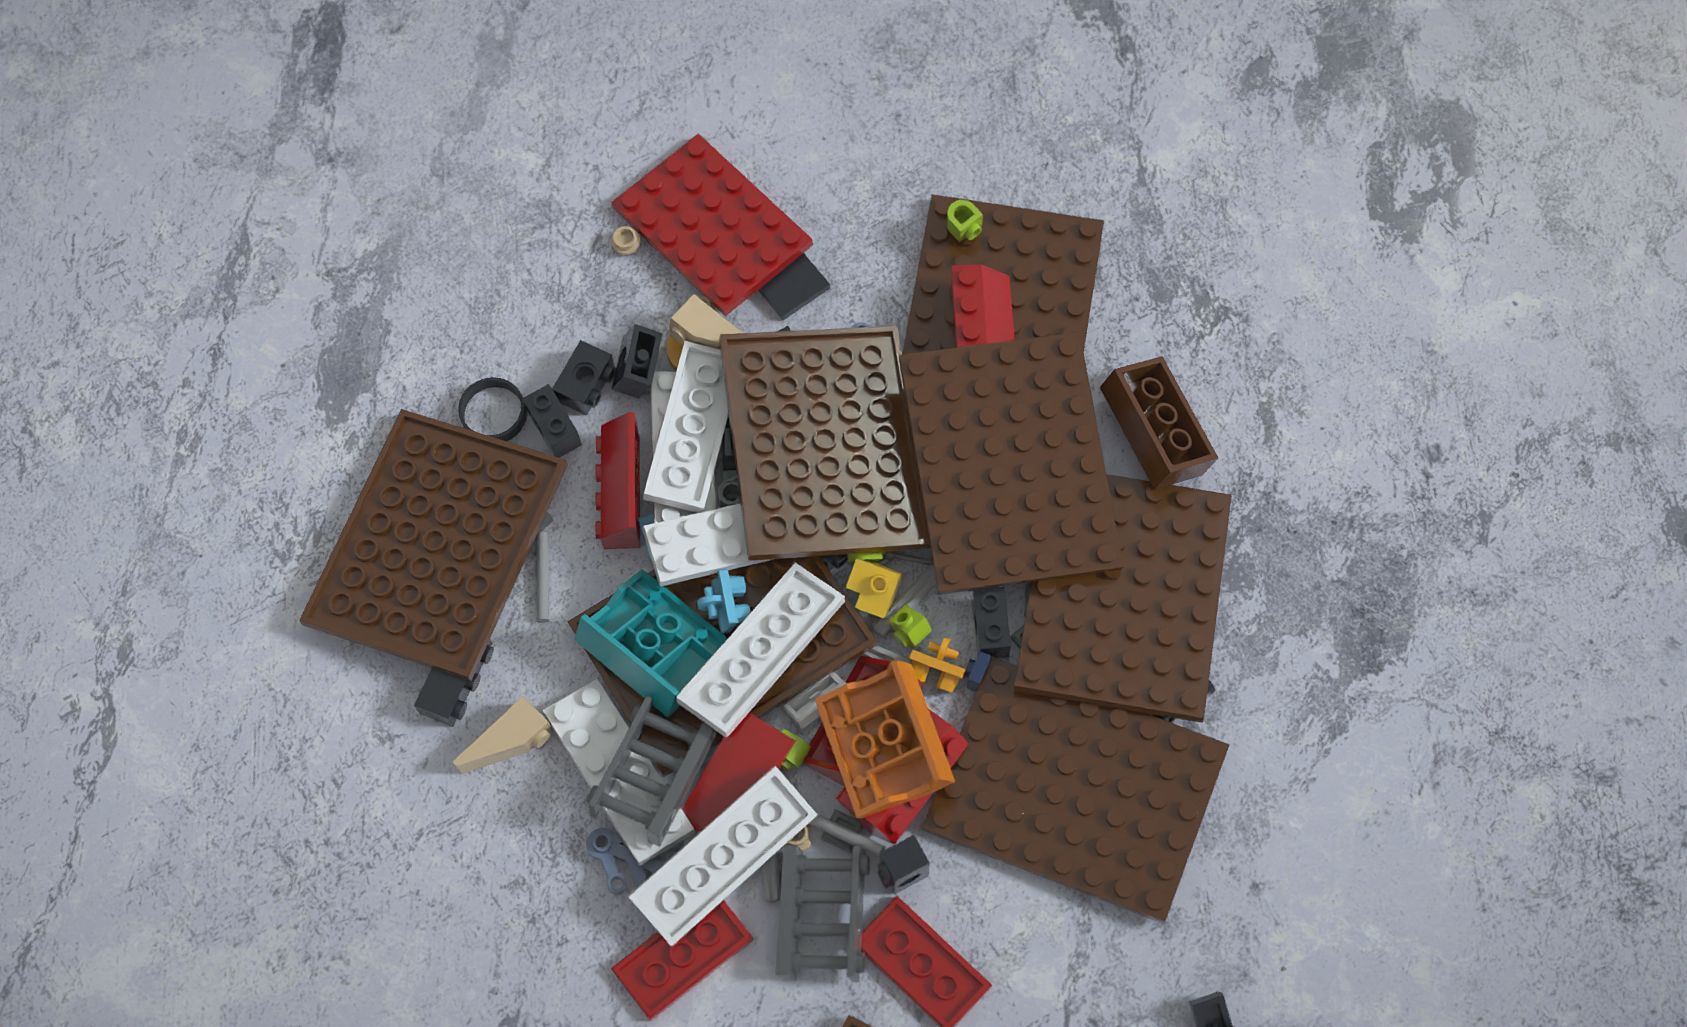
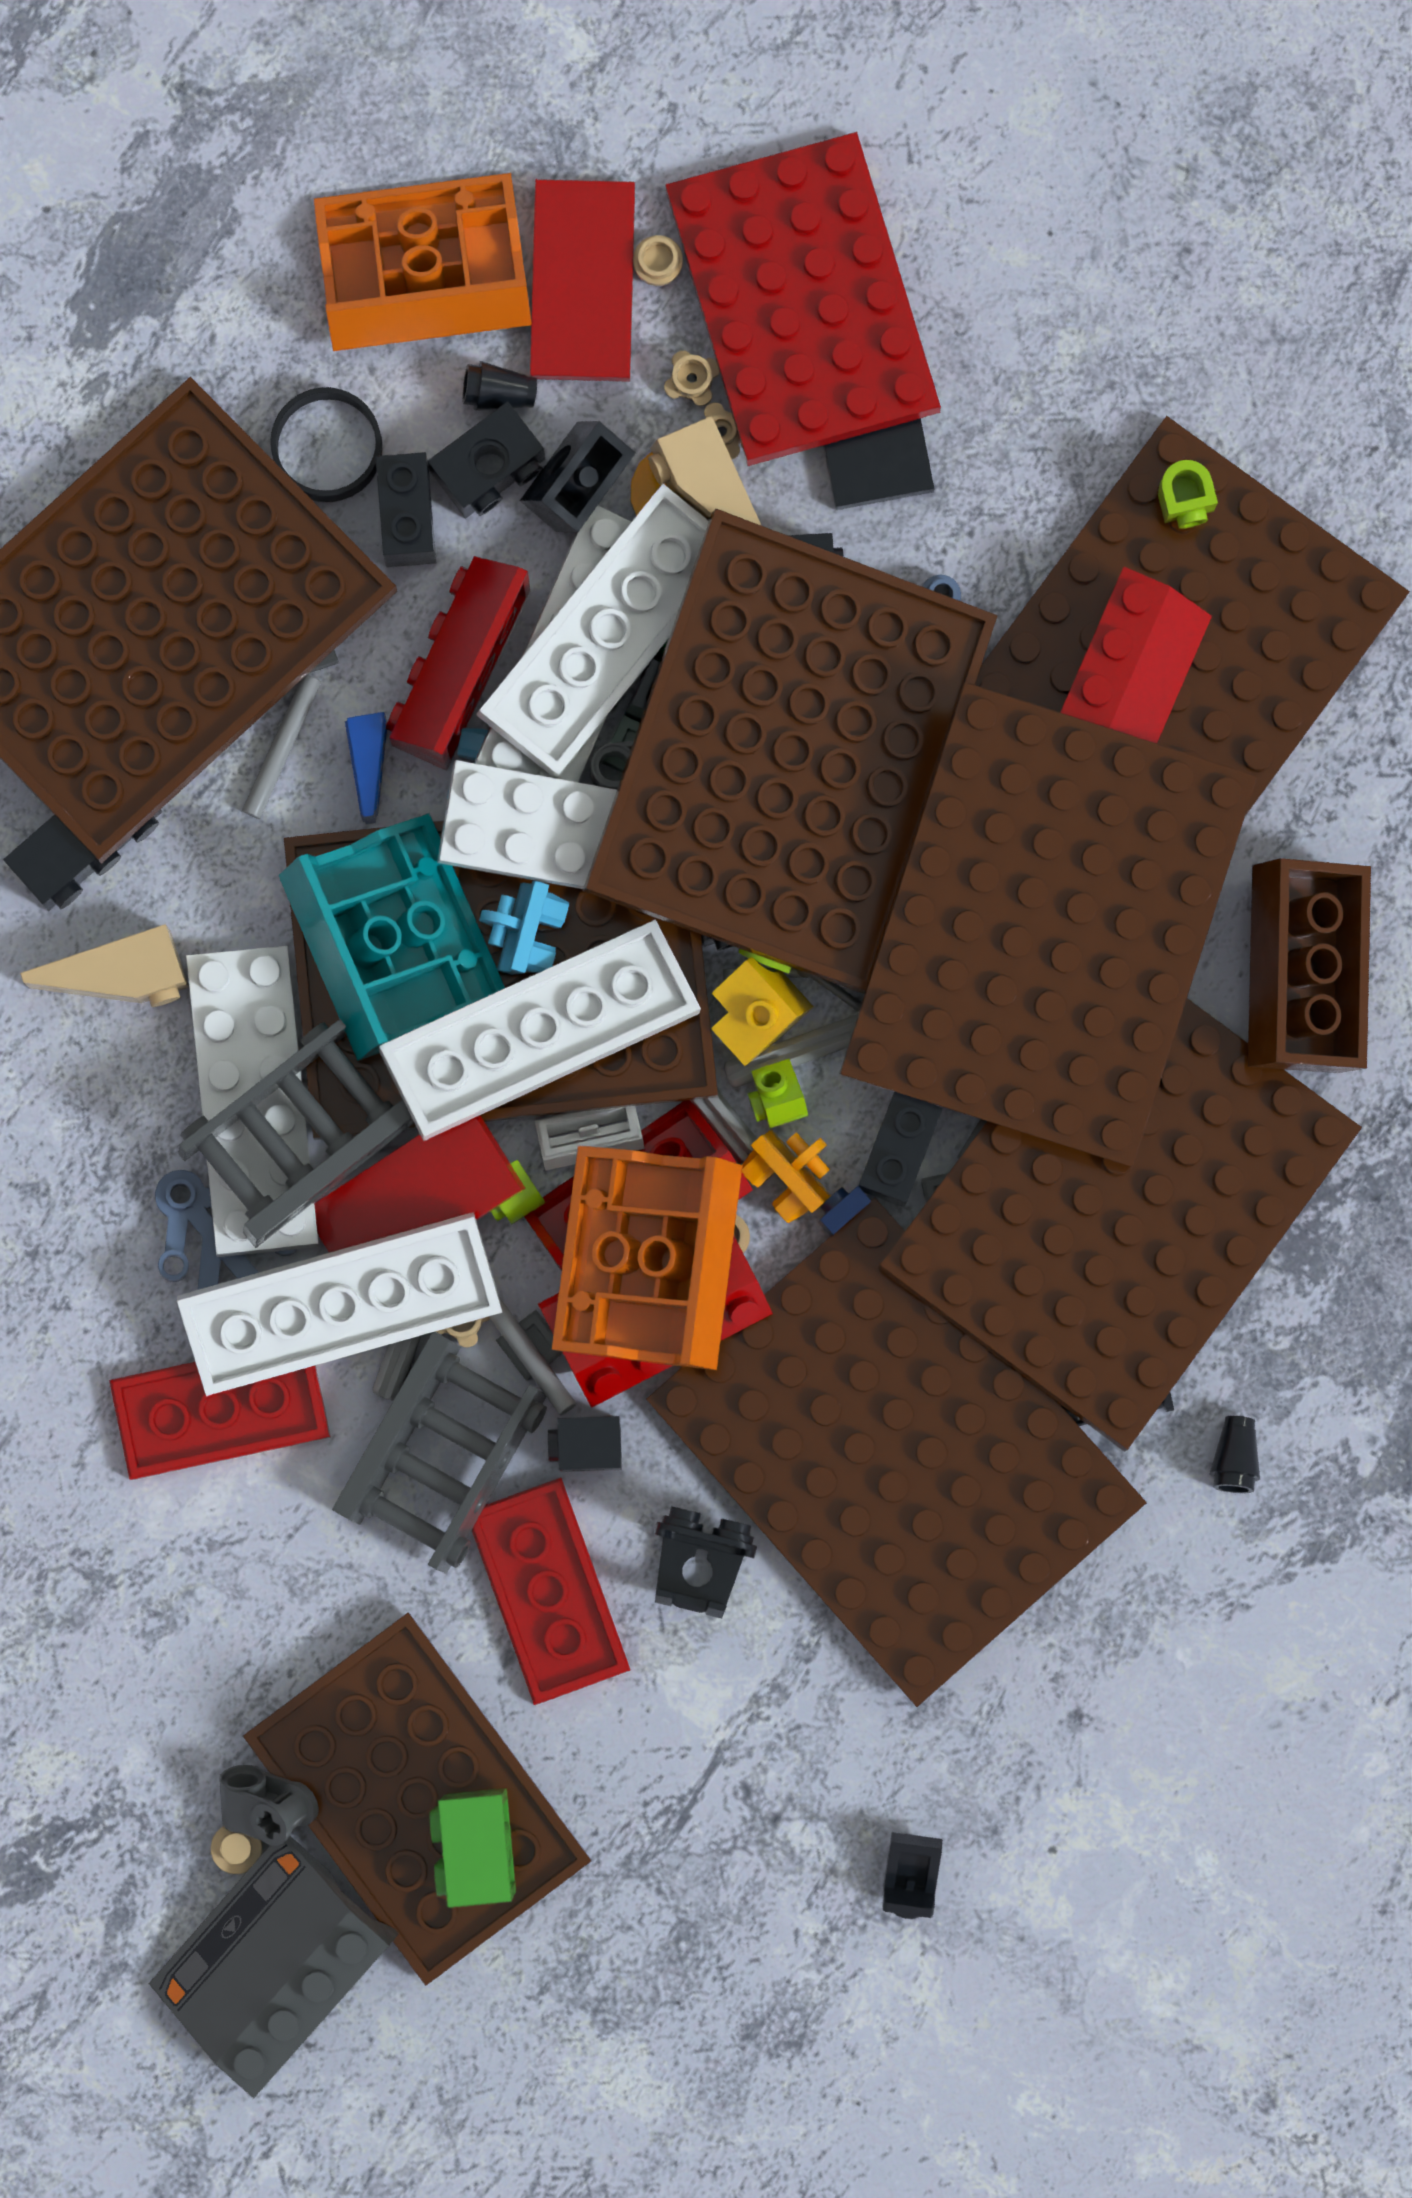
camera: 20 degrees right, 15 degrees up
(500, 298) = (422, 262): none -> orange piece
(566, 339) = (492, 386): none -> black cone
(590, 269) = (582, 280): none -> red tile
(590, 554) = (367, 749): none -> blue slope
(669, 282) = (688, 364): none -> tan plate
(1008, 885) = (725, 1549): none -> black piece
(1263, 699) = (1236, 1457): none -> black cone

